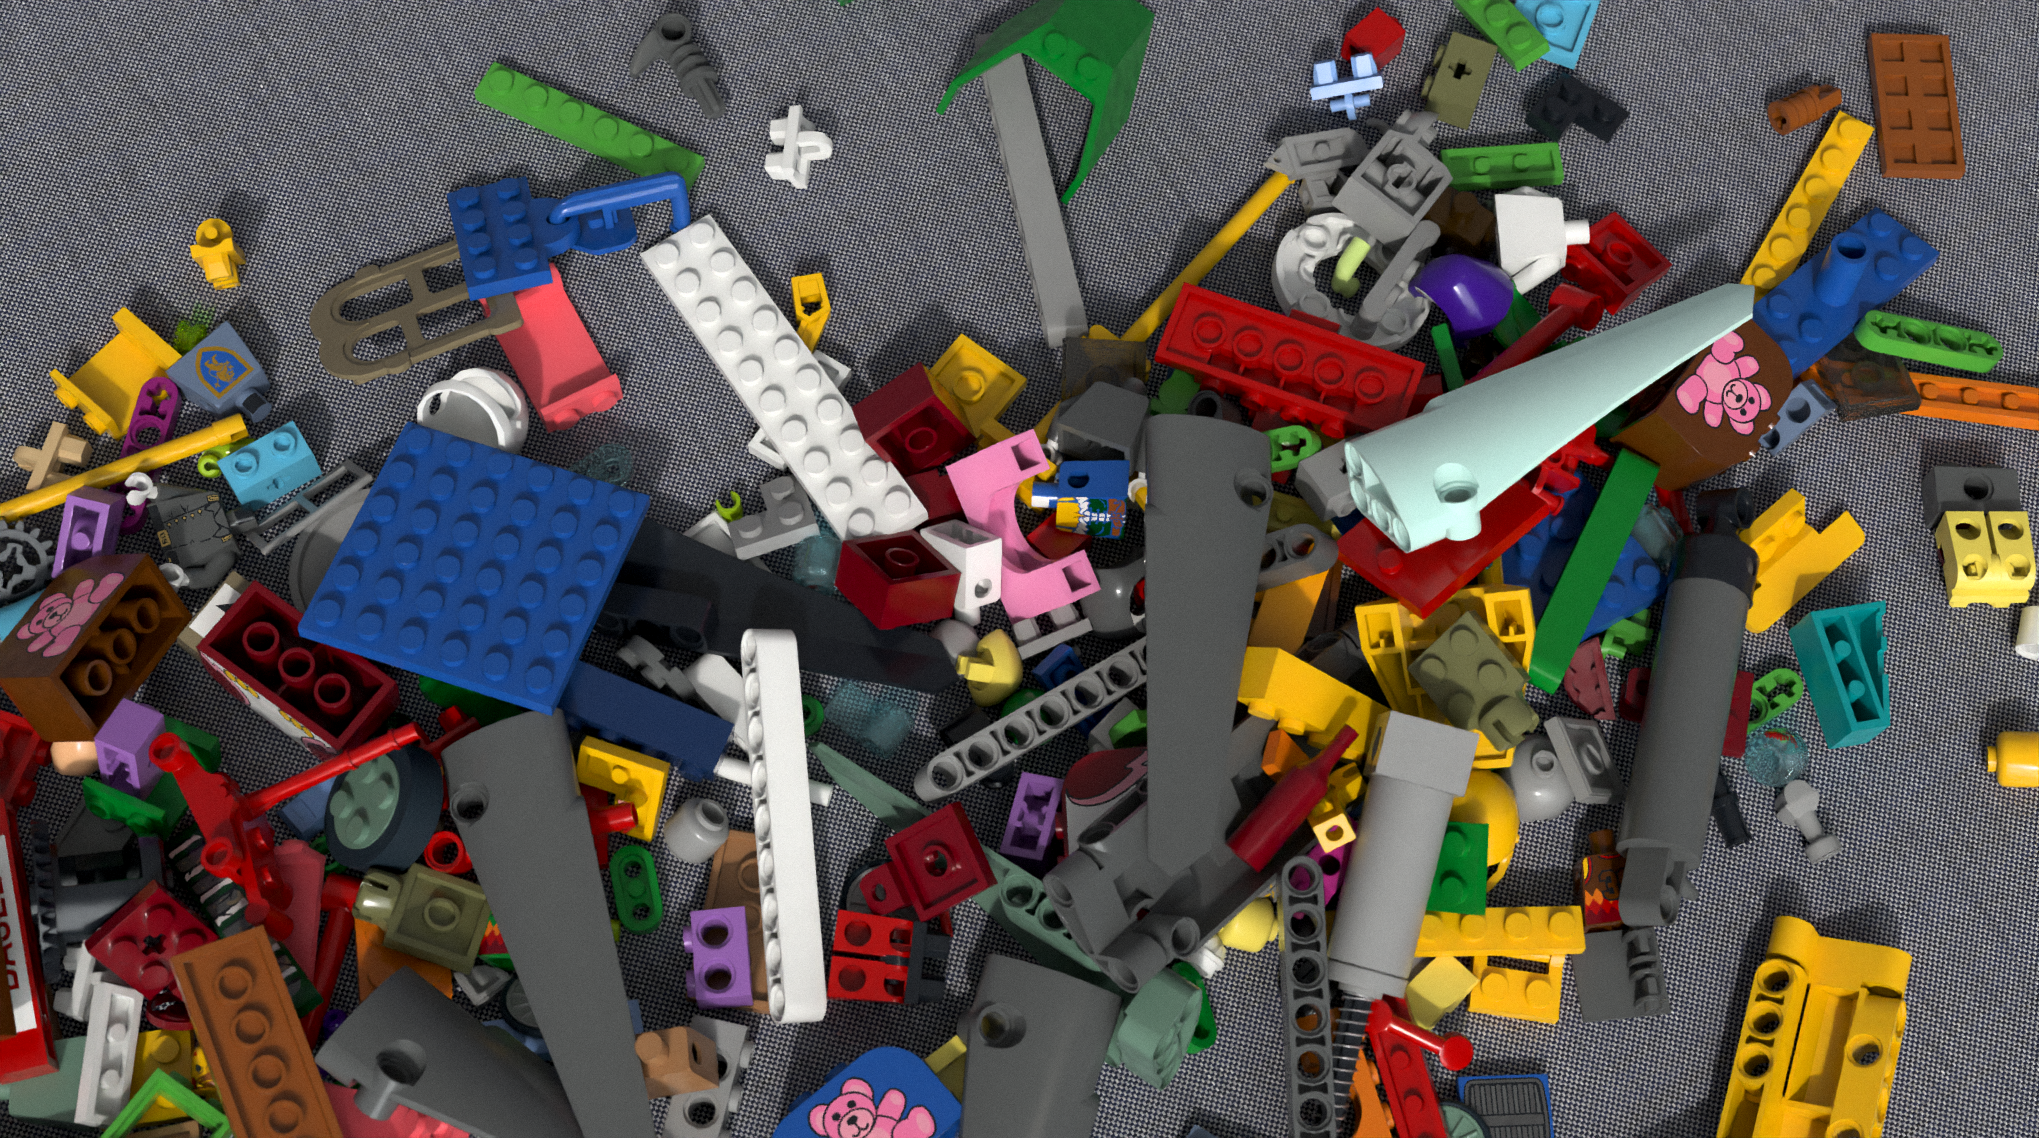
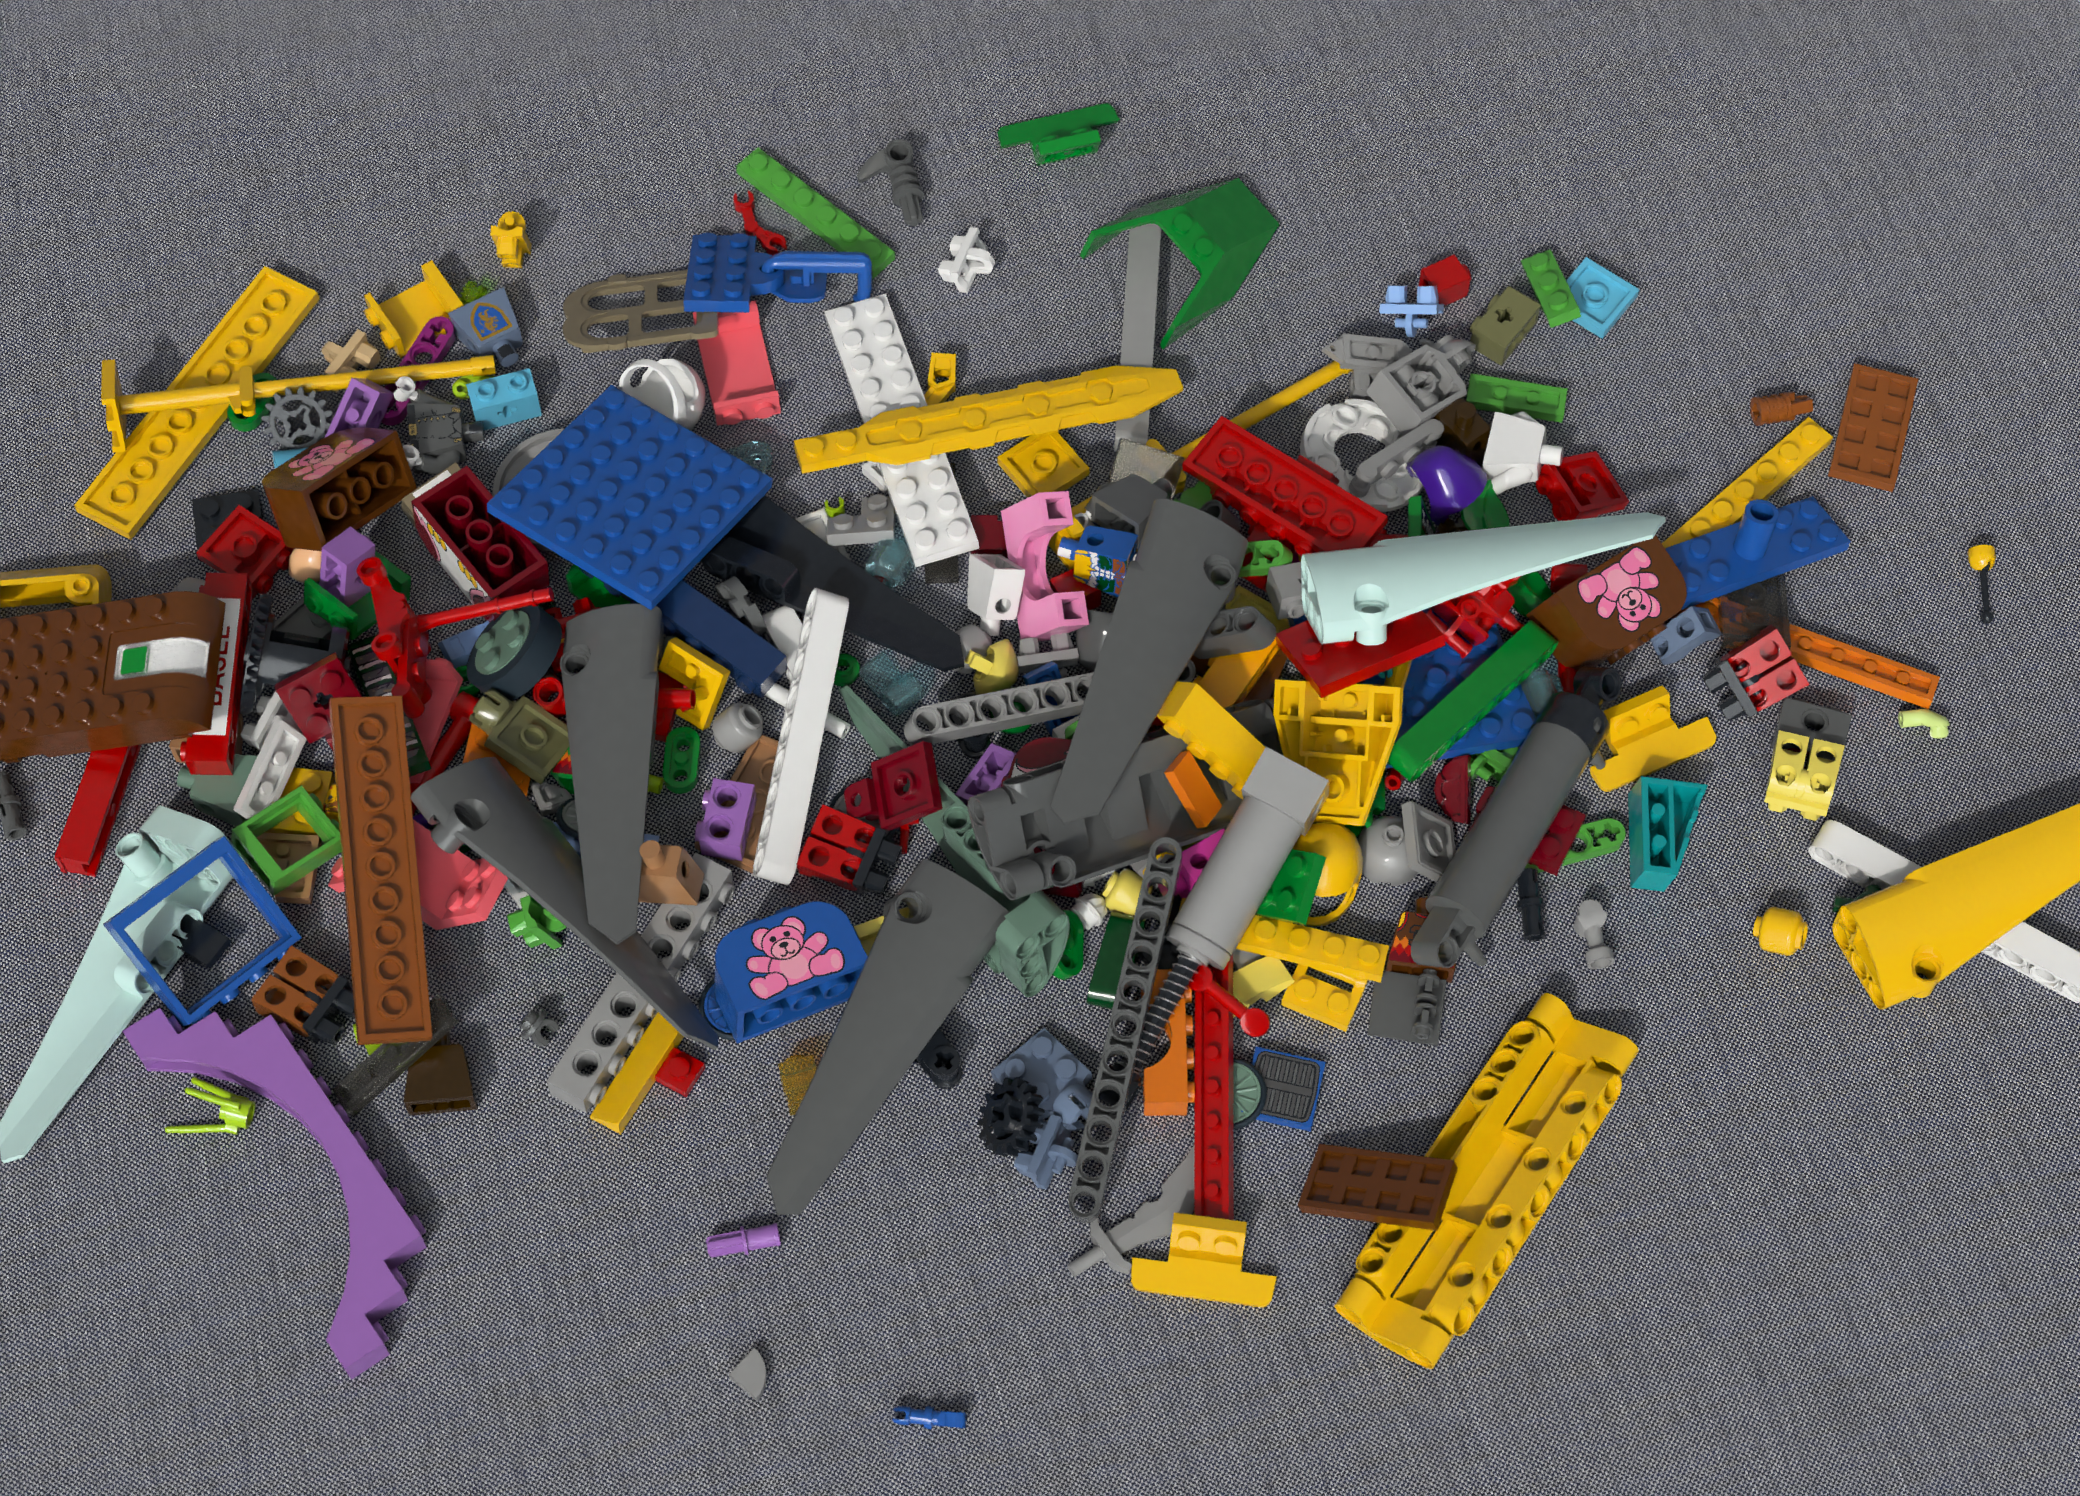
camera: 20 degrees right, 5 degrees down
(173, 1017) = (322, 761): dark red piece -> none
(314, 512) = (522, 430): light grey window -> none
(536, 175) = (751, 227): none -> red piece
(897, 579) = (940, 584): dark red brick -> none
(914, 422) = (988, 474): dark red brick -> none
(933, 326) = (983, 420): none -> yellow plate
(1256, 1012) = (1110, 960): none -> dark green beam
(1287, 804) = (1175, 803): dark red piece -> none
(1343, 788) = (1205, 823): yellow piece -> none
(1347, 265) = (1366, 441): yellowish green arm -> none
(1477, 682) = (1348, 752): olive plate -> none
(1566, 308) = (1524, 508): red piece -> none
(1573, 102) = (1592, 363): black plate -> none
(1776, 756) = (1583, 879): clear light blue head -> none
(1887, 335) = (1781, 589): bright green beam -> none
(1894, 447) = (1756, 674): none -> hips

